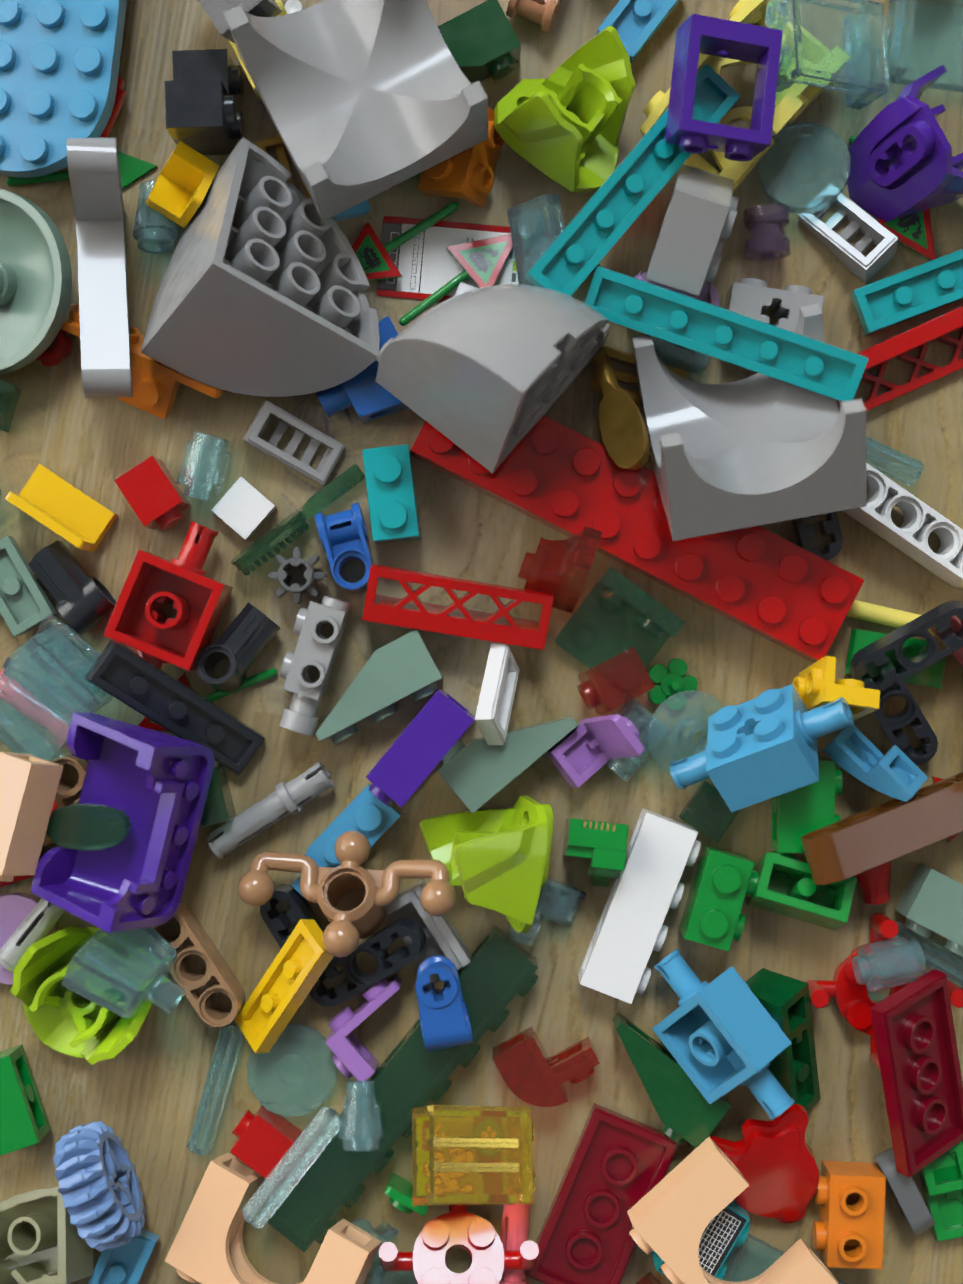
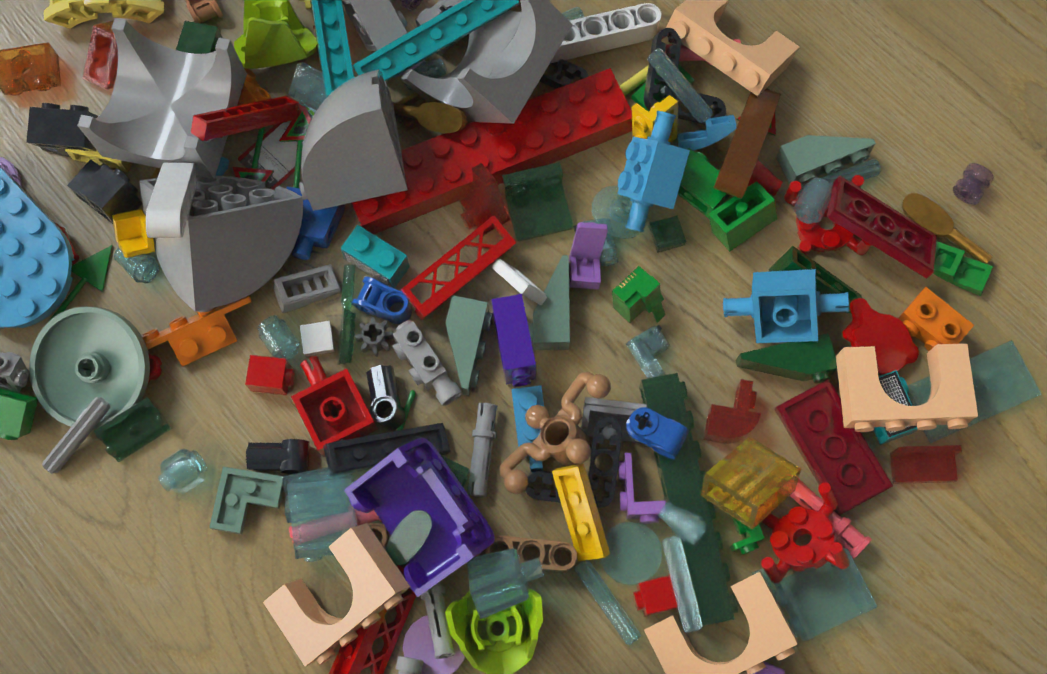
camera: 50 degrees left, 15 degrees down
(64, 509) = (235, 429): yellow panel -> none
(101, 267) = (132, 300): light grey beam -> none
(219, 220) = (171, 200): none -> white beam
(420, 193) = (244, 118): none -> red piece
(496, 855) = (605, 347): lime piece -> none
(614, 682) = (561, 225): clear red bracket -> none
(638, 905) = (687, 304): white brick -> none
(670, 680) = (583, 202): green plant -> none
(717, 897) = (713, 260): green brick -> none
(905, 1194) = (944, 287): dark grey beam -> none
(909, 686) = (680, 85): none -> clear light blue axle

